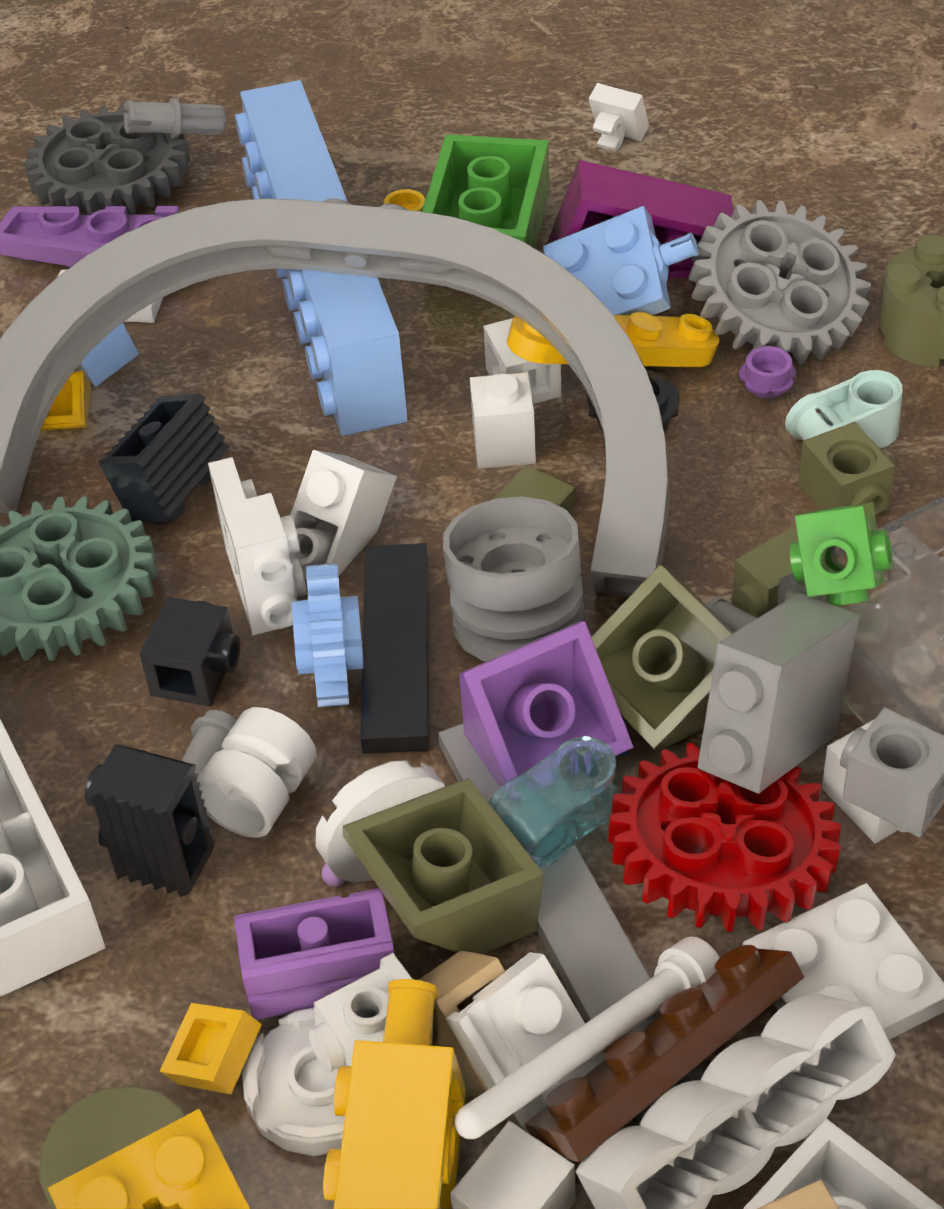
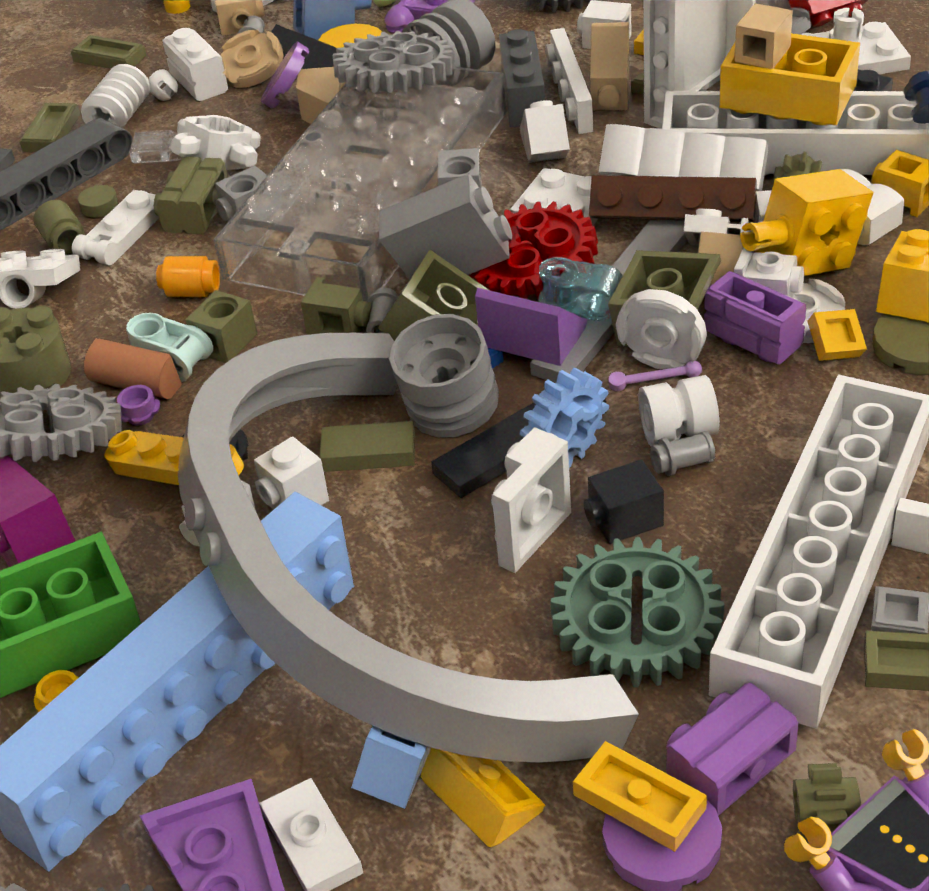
camera: 125 degrees left, 5 degrees down
(151, 818) = (760, 406): black brick -> none
(164, 458) = (486, 610): black brick -> none
(338, 509) = (443, 506): white slope -> none
(623, 262) = (104, 492): light blue plate -> none
(678, 968) = (620, 229): white piece -> none
(826, 372) = (129, 365): none -> nougat brick
(856, 533) = (344, 222): bright green brick -> none

